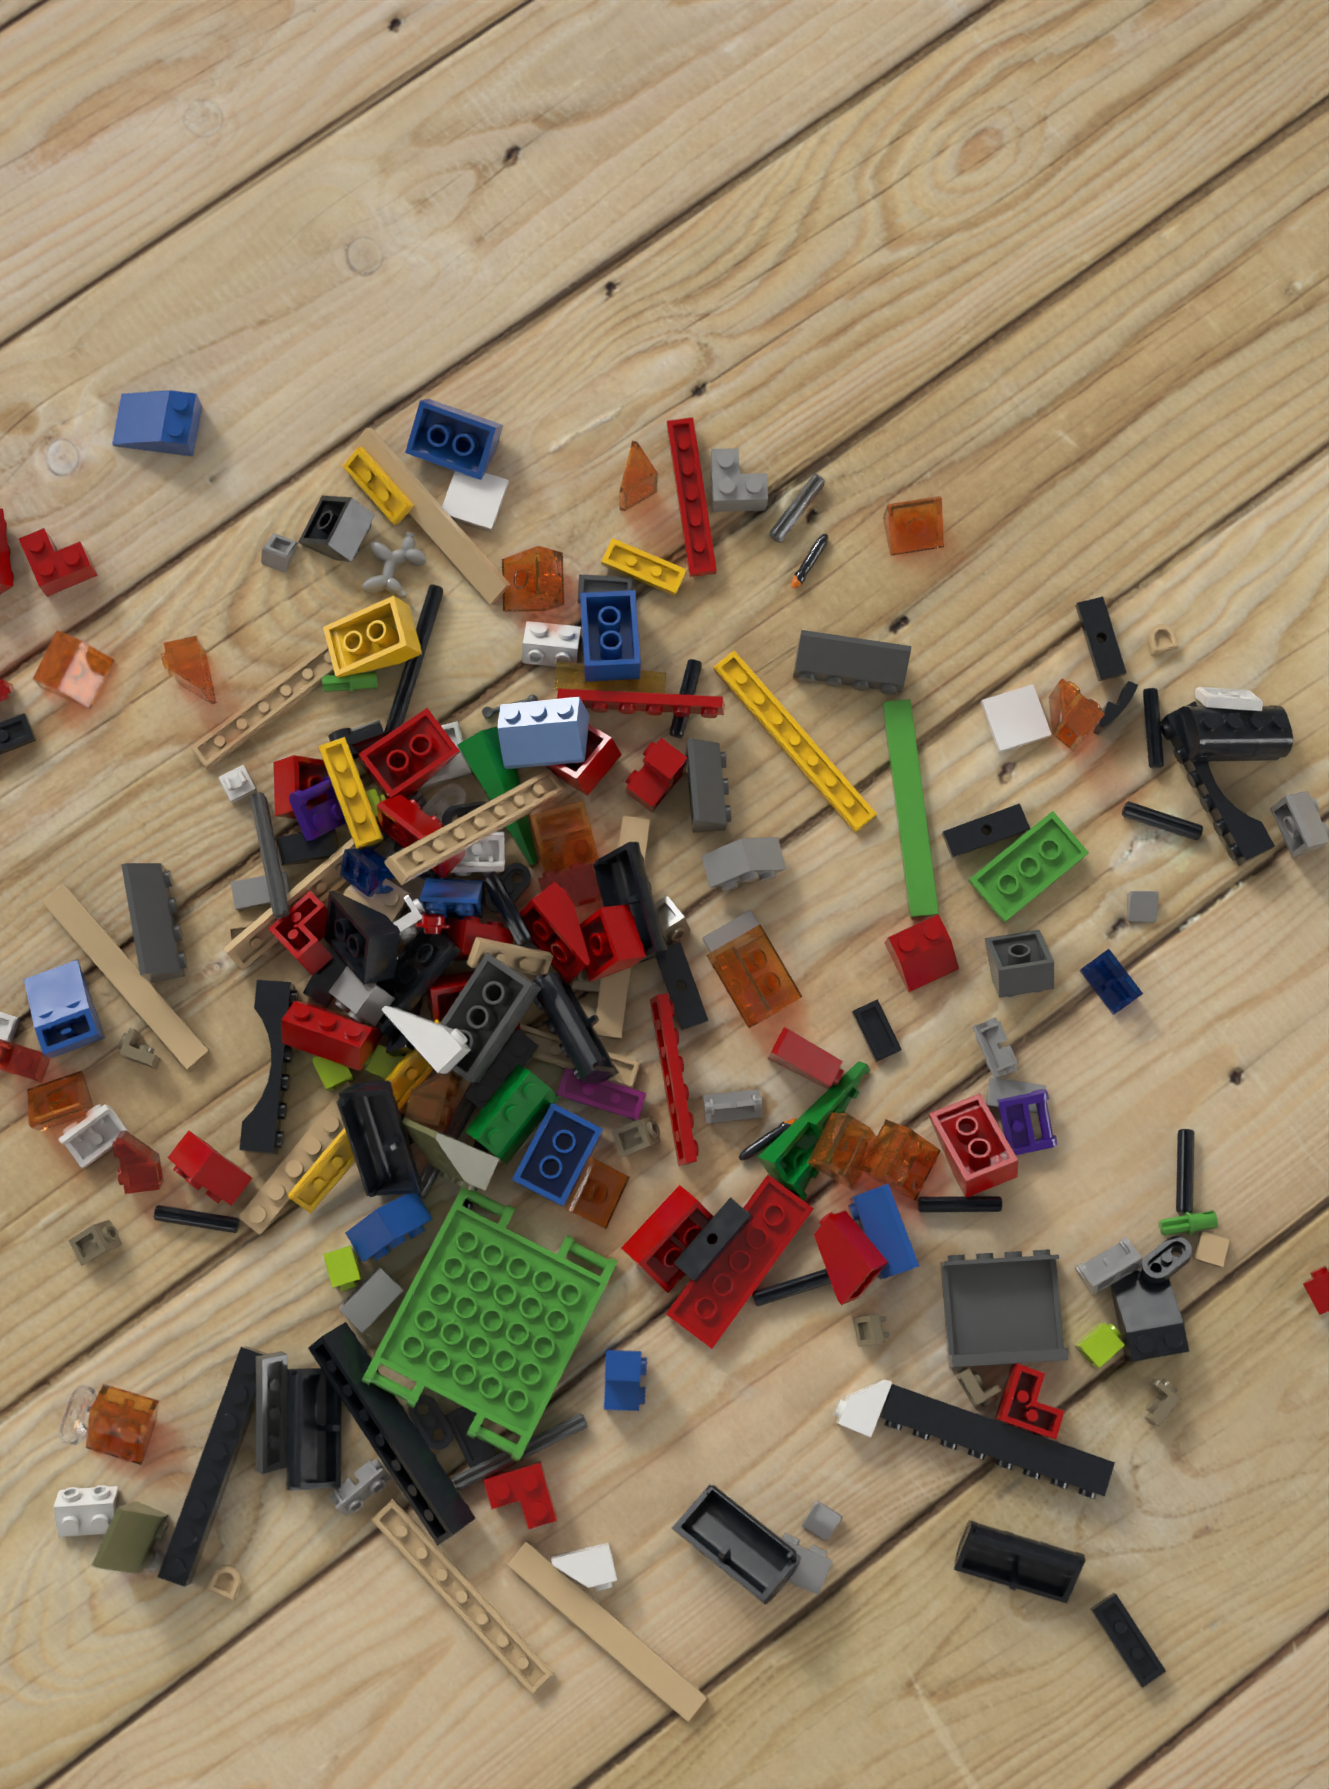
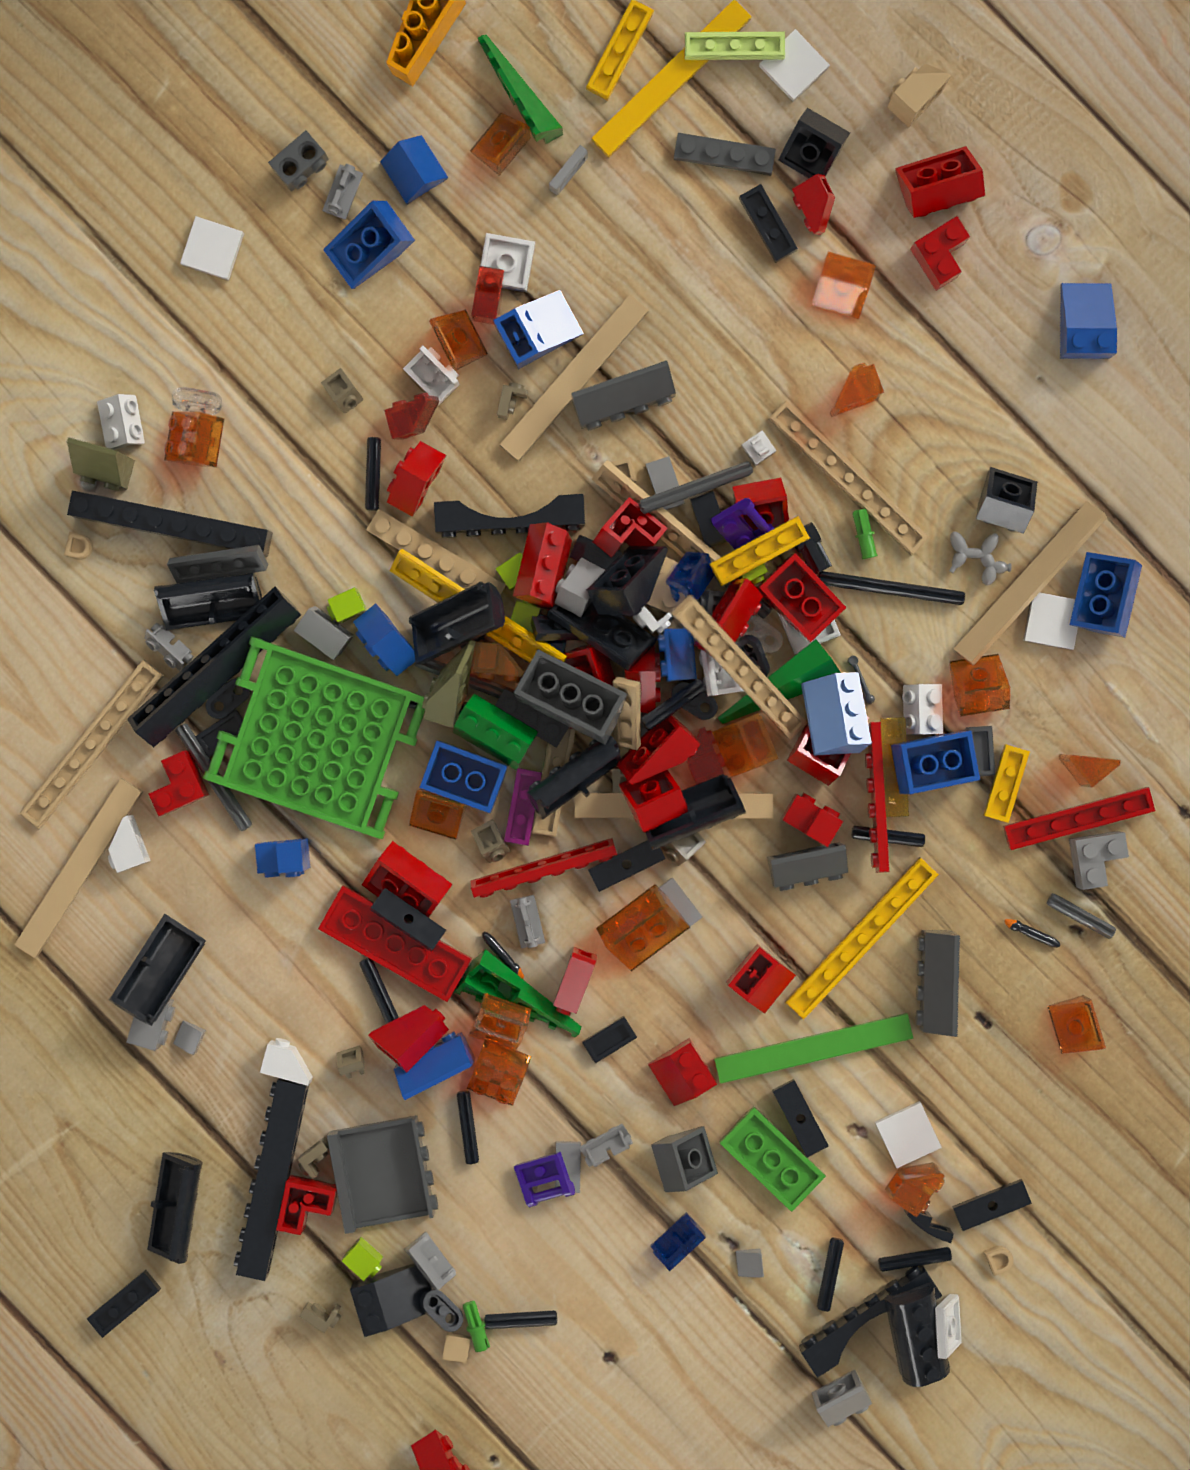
camera: 85 degrees right, 10 degrees up
(278, 552) = (978, 450): light grey slope -> none
(373, 638) = (905, 549): yellow slope -> none
(378, 485) = (1052, 531): yellow tile -> none
(433, 923) = (649, 642): red plate -> none
(435, 1042) = (544, 657): white slope -> none
(743, 861) = (742, 907): light grey brick -> none
(825, 854) = (760, 978): none -> red slope
(974, 1145) = (519, 1135): red slope -> none

